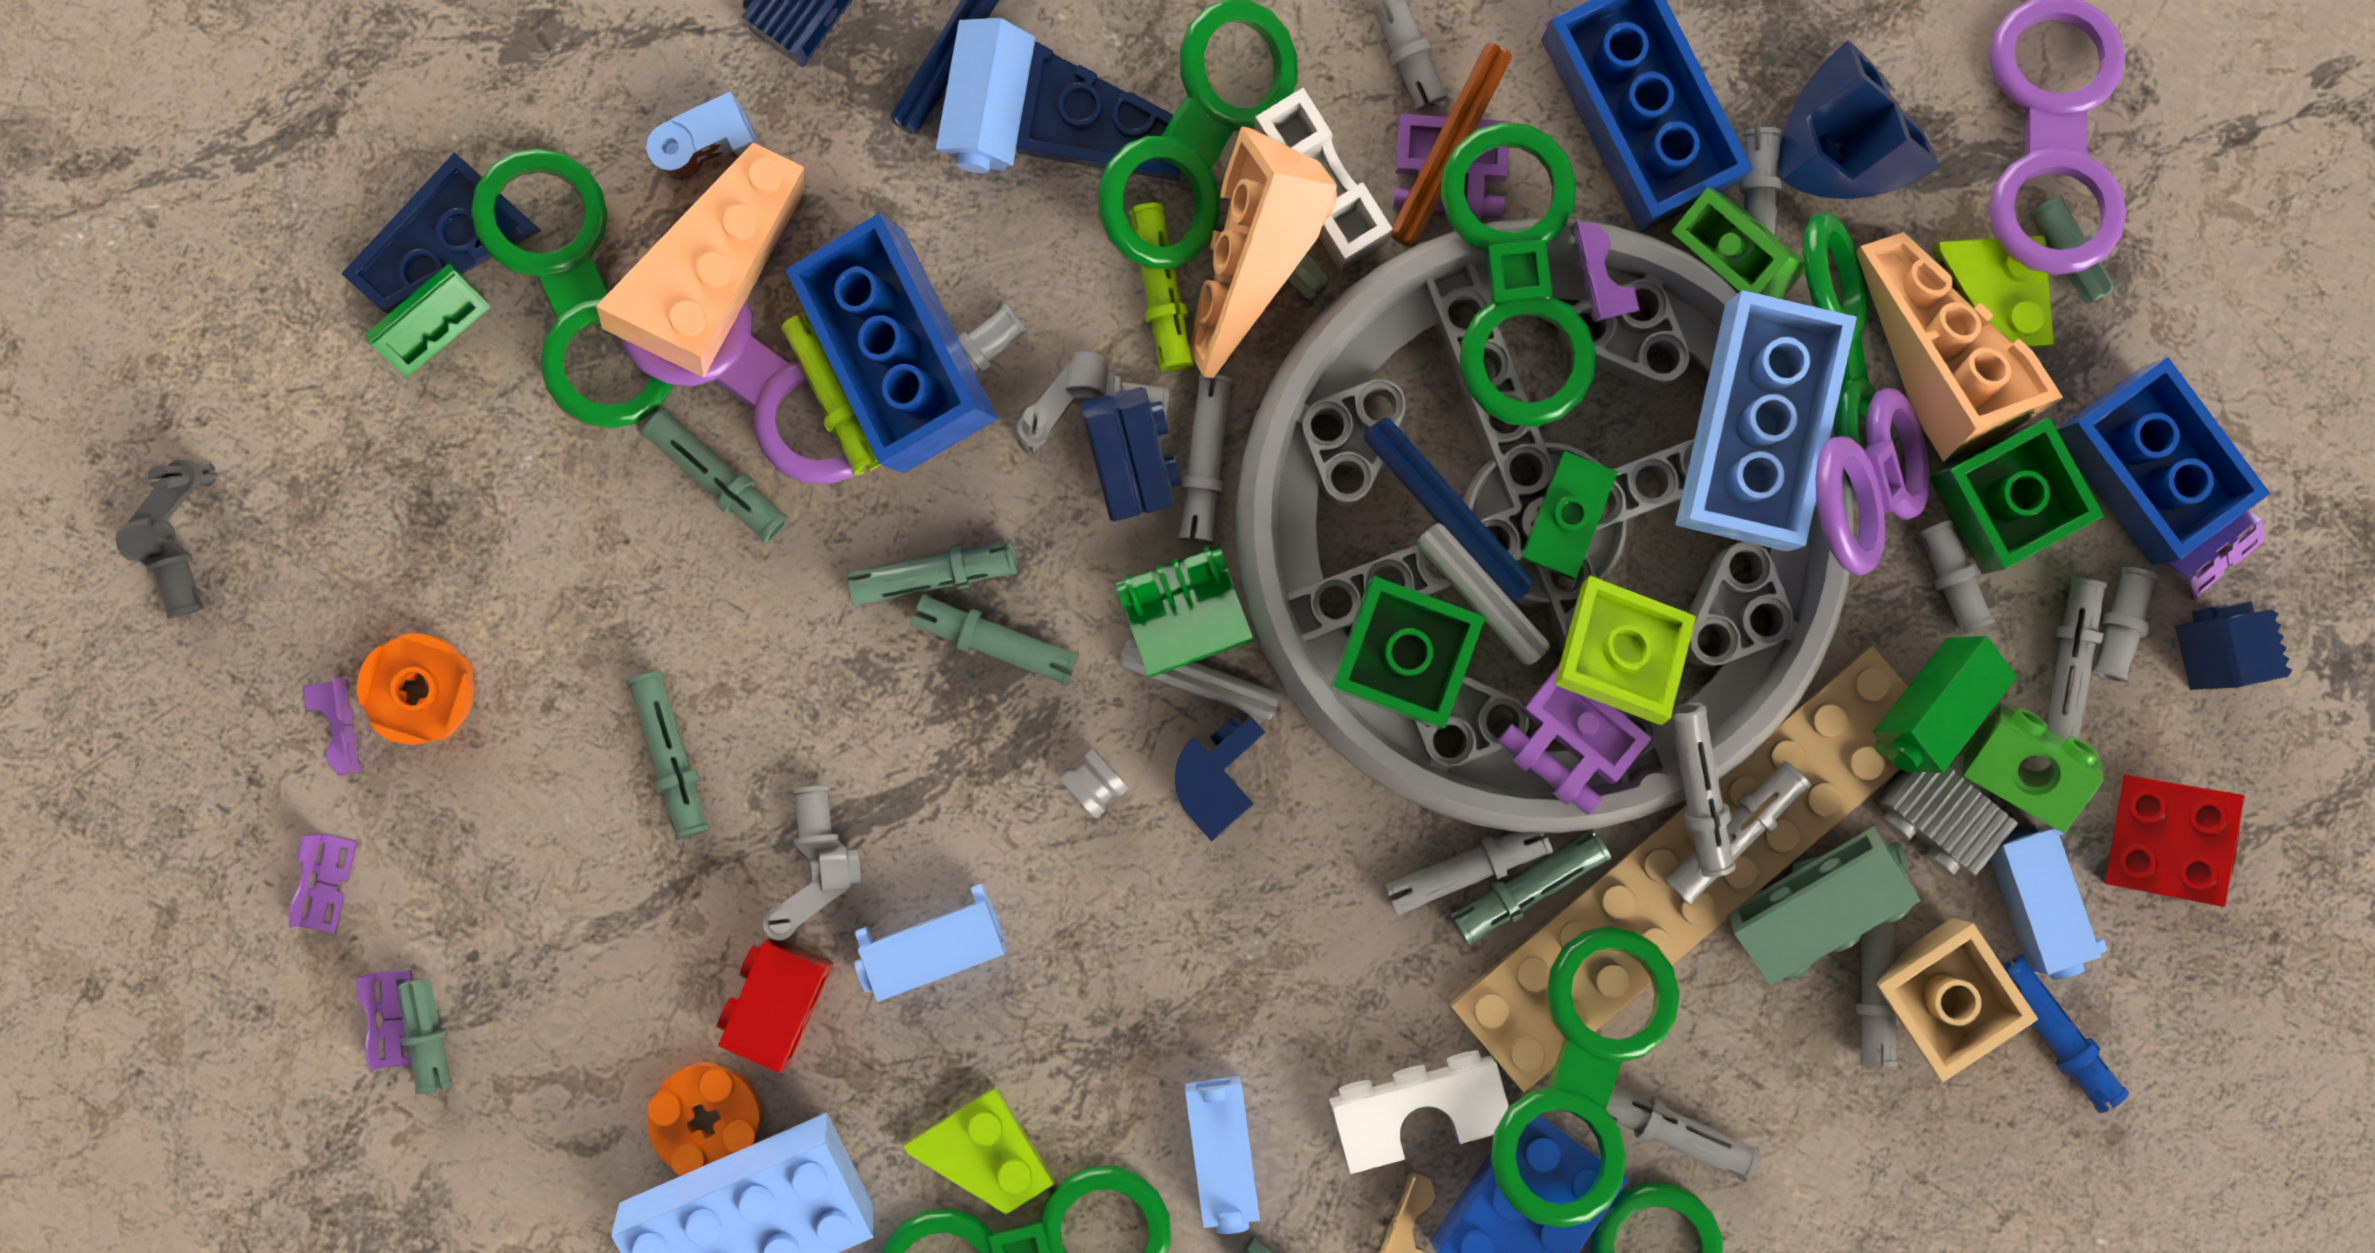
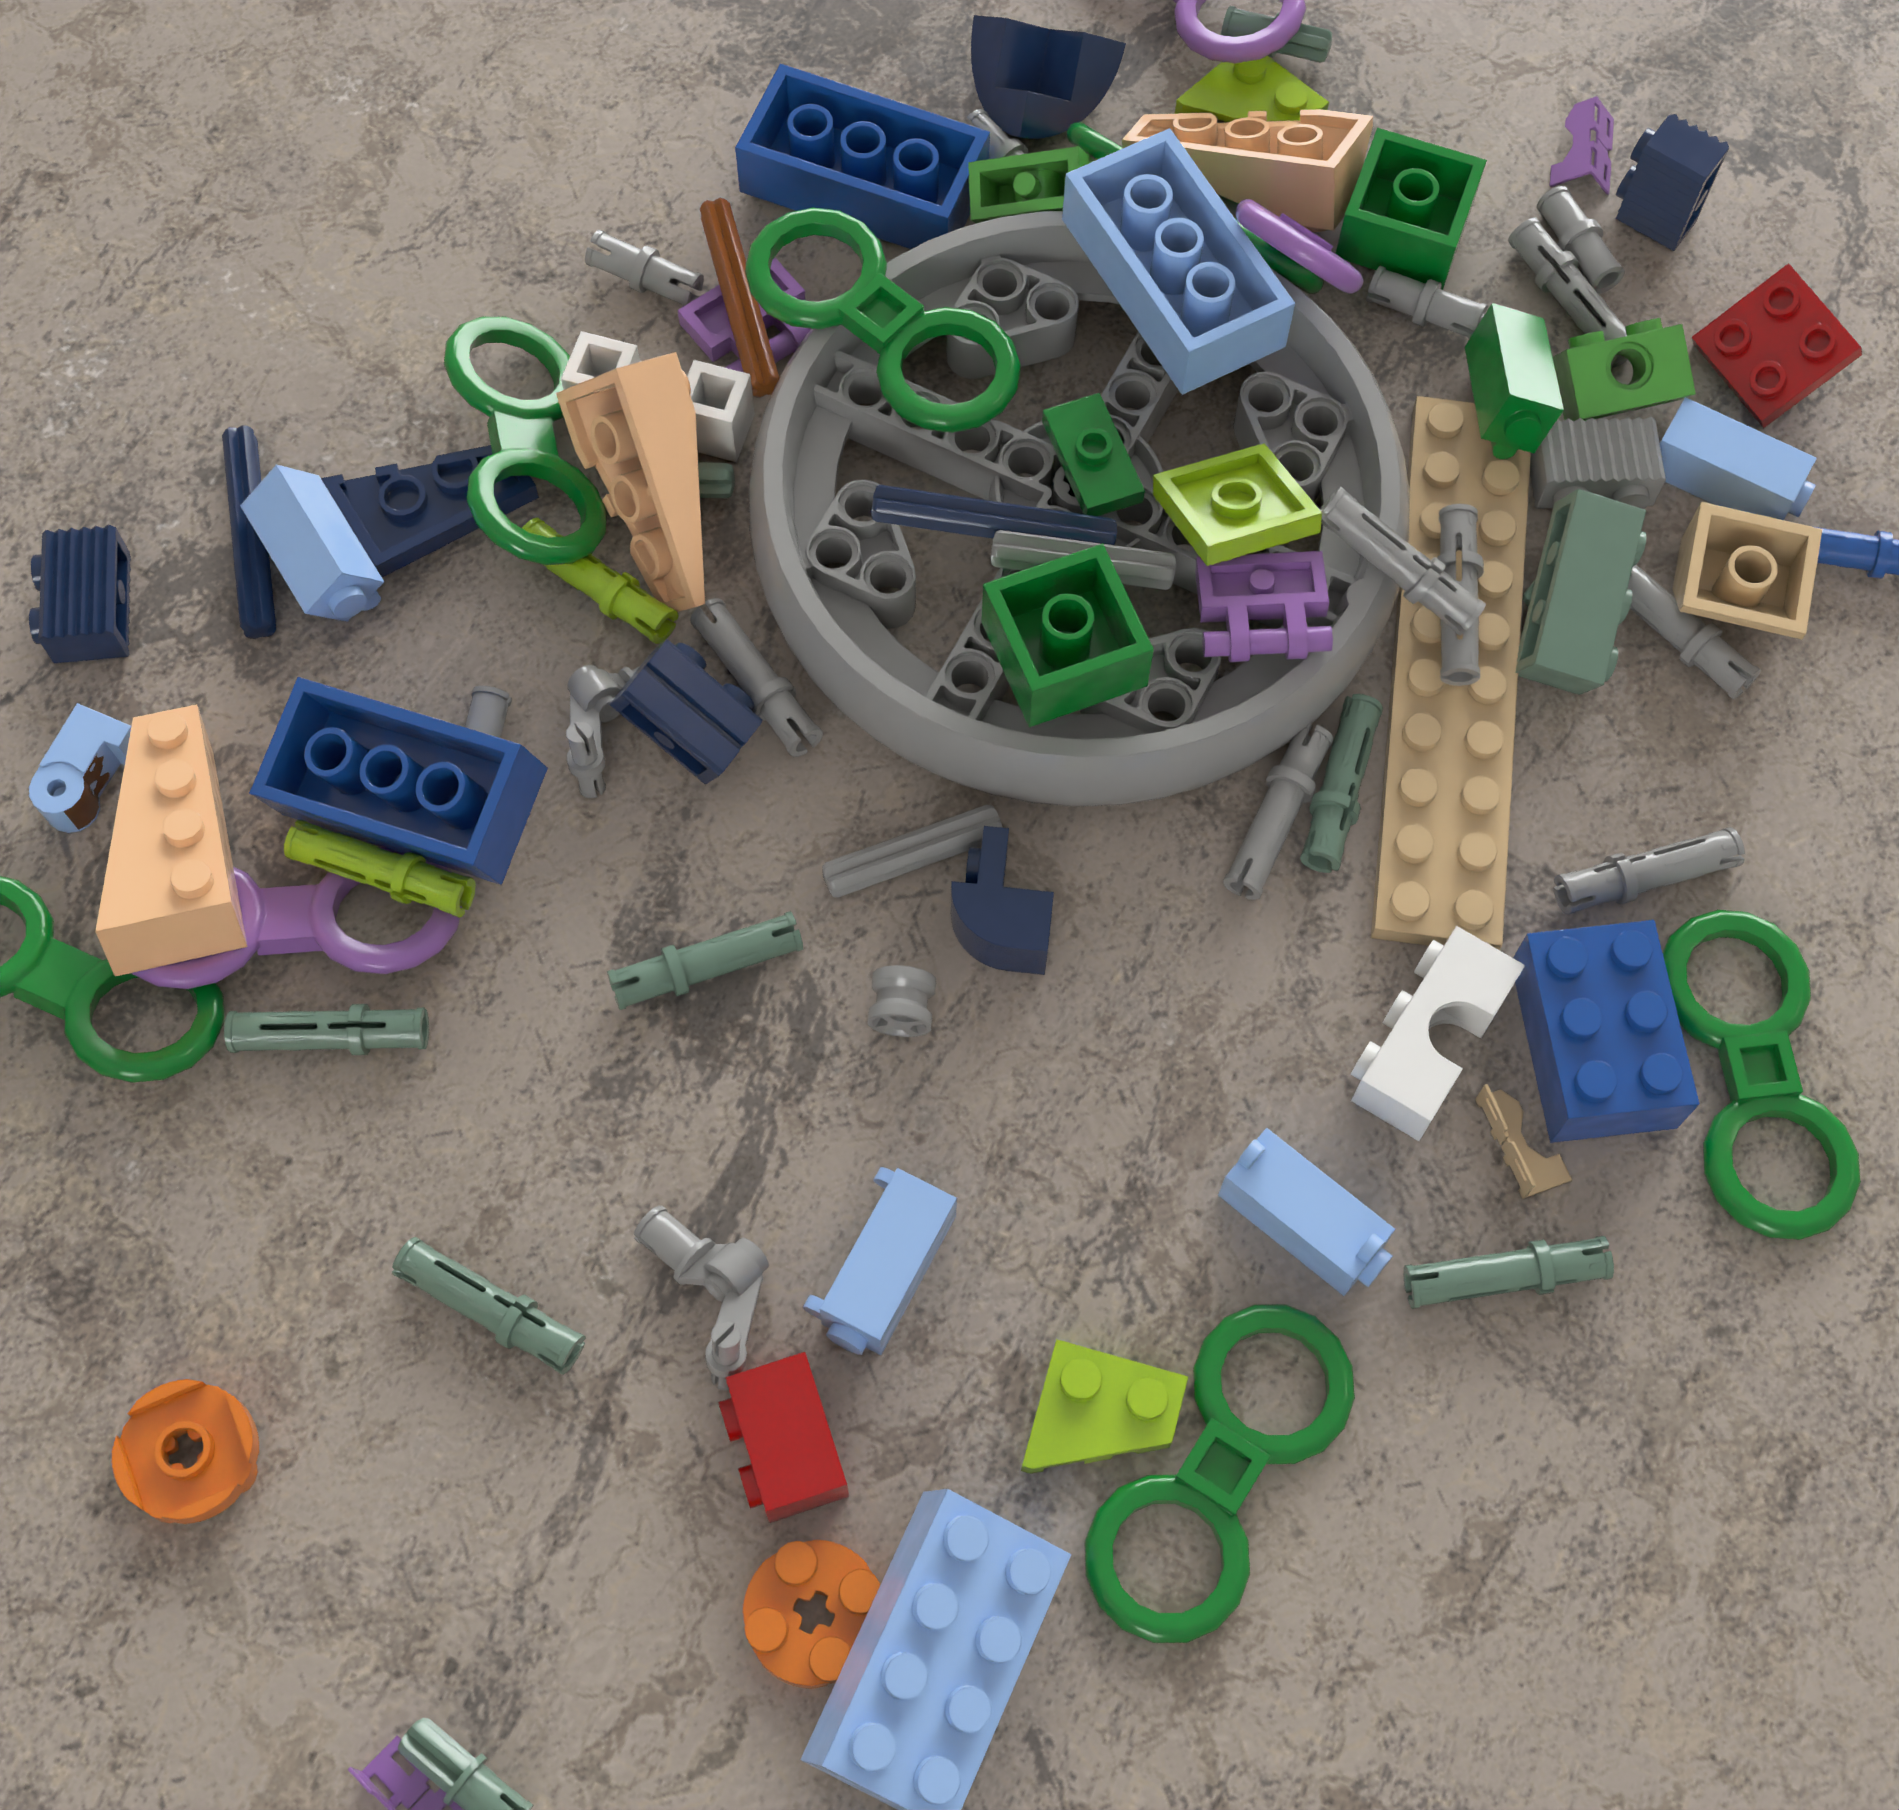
camera: 45 degrees left, 20 degrees down
(328, 873) = (233, 1714): medium lavender piece -> none
(334, 704) = (114, 1544): medium lavender piece -> none
(921, 575) = (617, 930): sand green pin -> none
(1183, 611) = (845, 798): hinge -> none
(1585, 1077) = (1538, 870): green bar -> none
(1604, 294) = (923, 261): medium lavender piece -> none
(2161, 462) = (1493, 104): blue brick -> none

